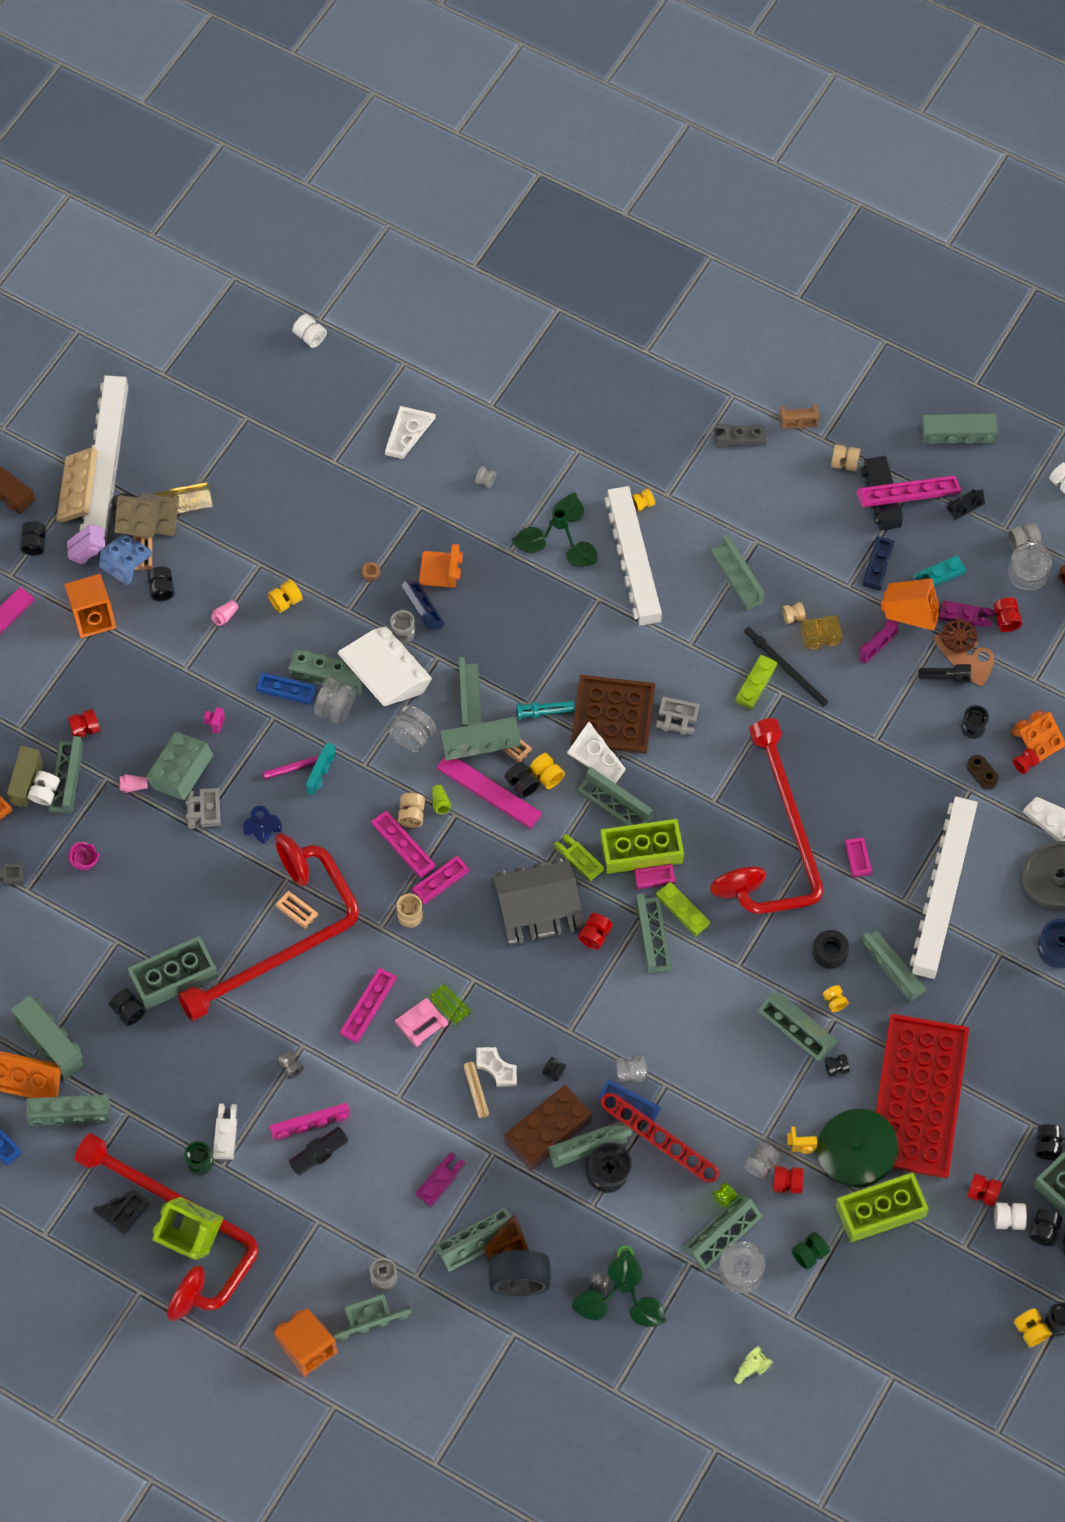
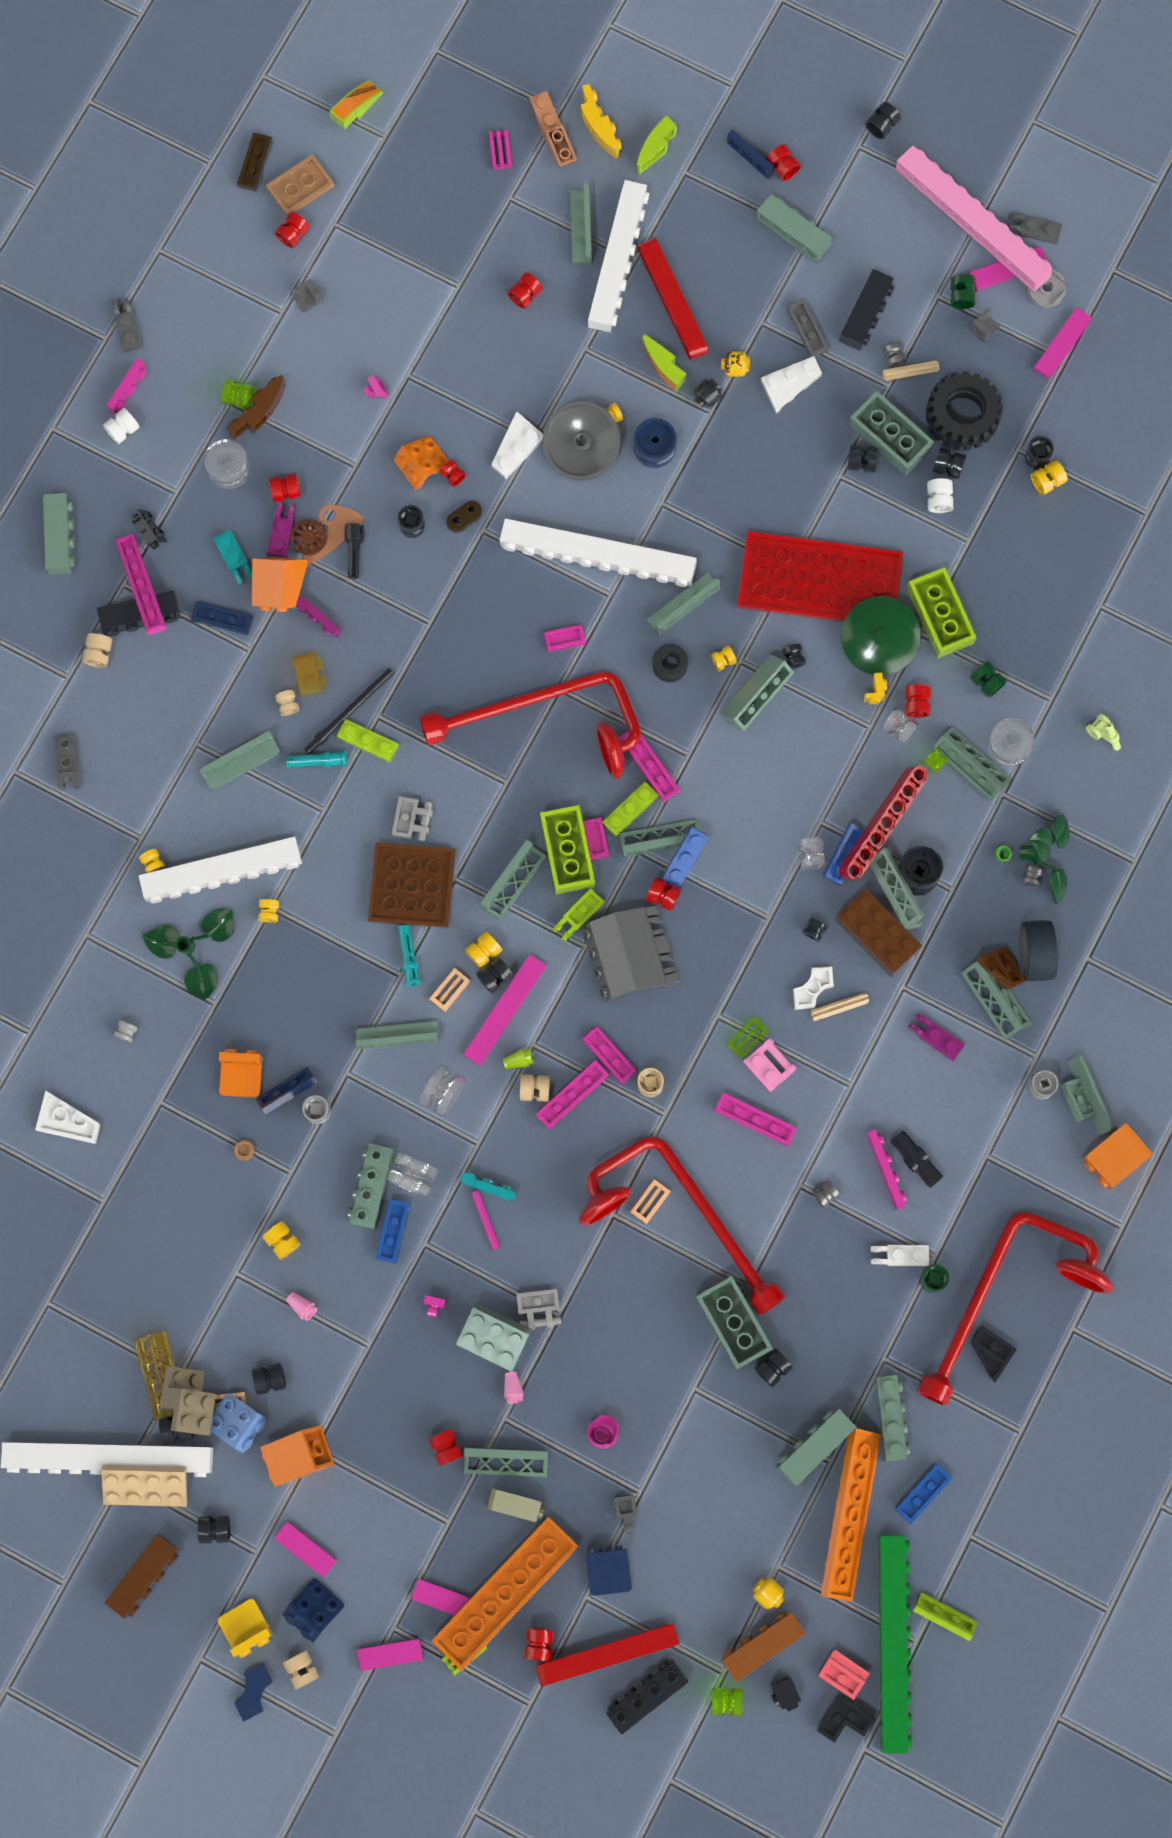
camera: 90 degrees left, 15 degrees up
(43, 789) = (534, 1483): white wheel -> none
(86, 544) = (224, 1466): lavender brick -> none
(195, 1232) = (1016, 1281): lime container -> none
(261, 826) = (557, 1244): clear blue plate -> none
(385, 666) = (370, 1124): white slope -> none
(480, 738) = (452, 1018): sand green brick -> none
(593, 593) = (268, 911): none -> yellow wheel
(594, 753) = (463, 900): white wing -> none
(631, 950) = (685, 856): none -> plate
(724, 929) = (652, 769): none -> dark pink plate
(738, 644) = (327, 759): none -> teal pin
(799, 417) = (42, 699): medium nougat hinge -> none
(984, 1189) = (915, 517): red wheel -> none
(1029, 533) = (191, 468): light grey wheel -> none

